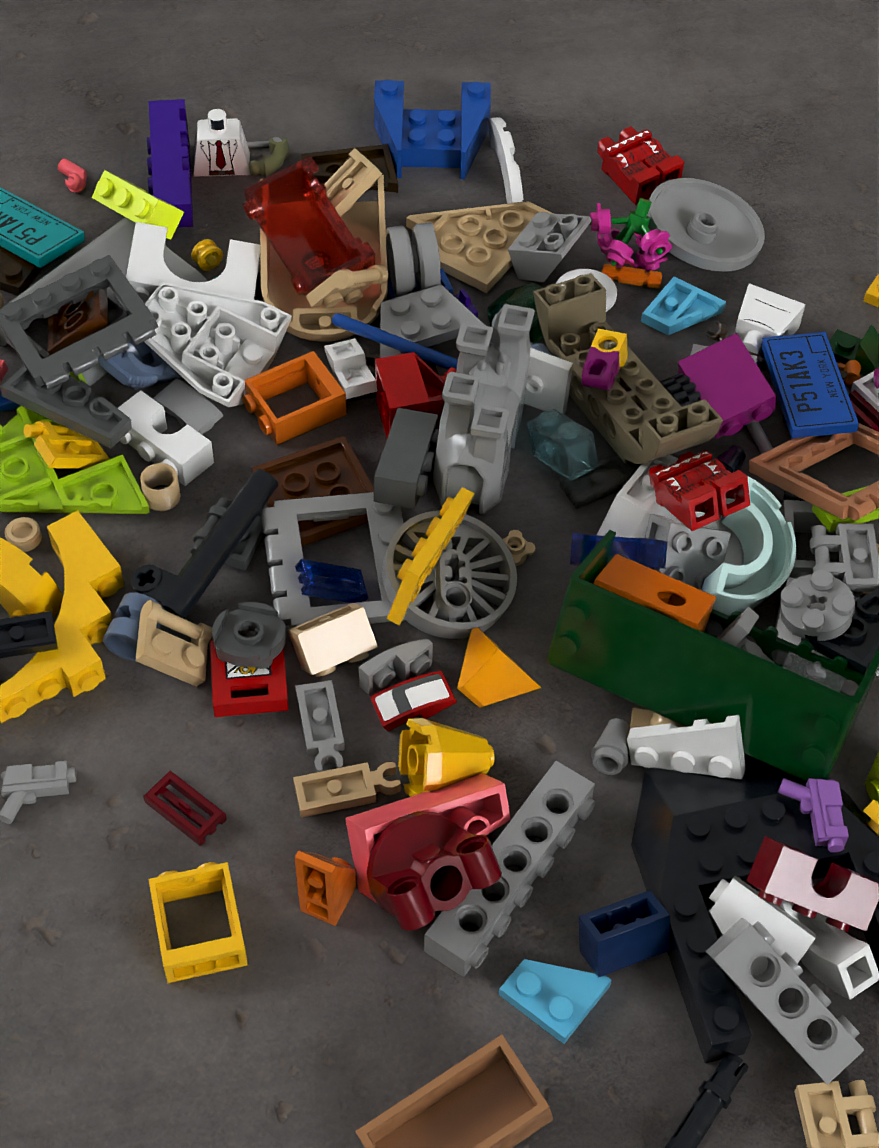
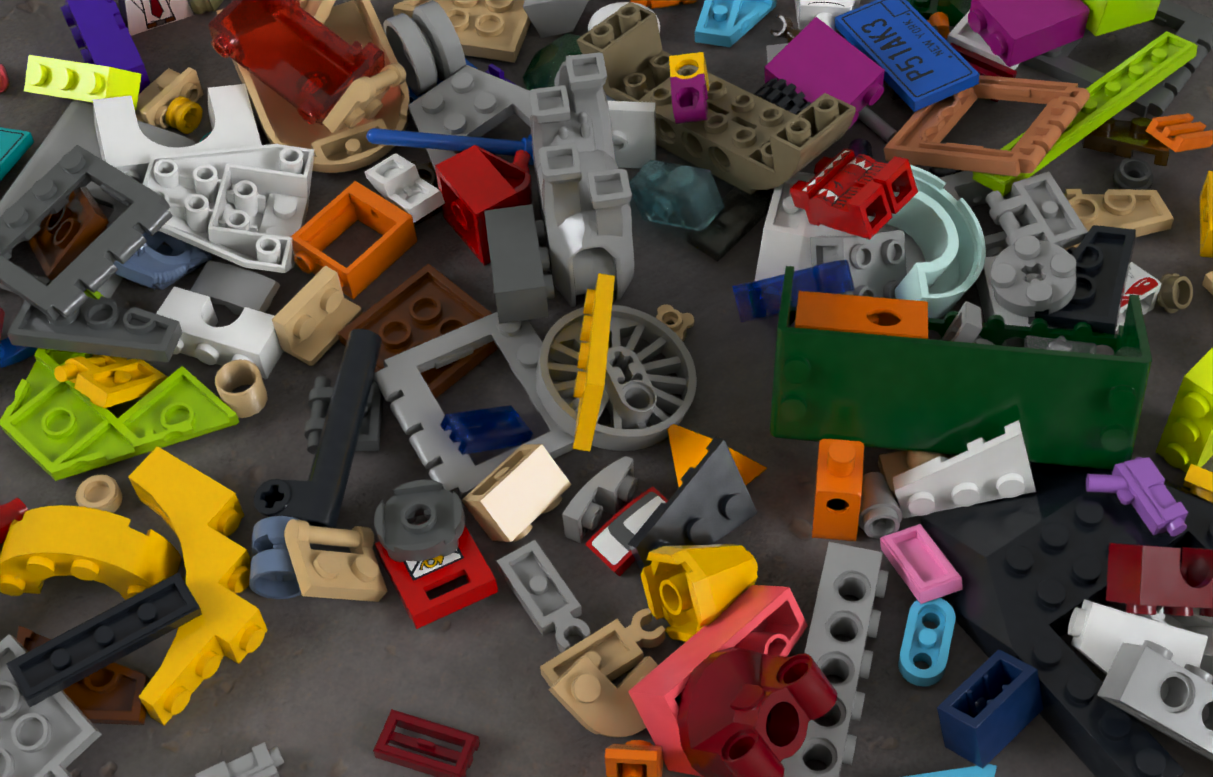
camera: 15 degrees left, 0 degrees up
(195, 231) = (162, 91): none -> tan bracket
(237, 449) = (314, 317): none -> tan bracket
(324, 819) = (598, 702): none -> tan plate
(471, 700) = (701, 510): none -> black wing
(588, 712) = (838, 477): none -> orange torso
(600, 867) = (925, 643): none -> medium azure plate
(625, 804) = (921, 563): none -> bright pink tile

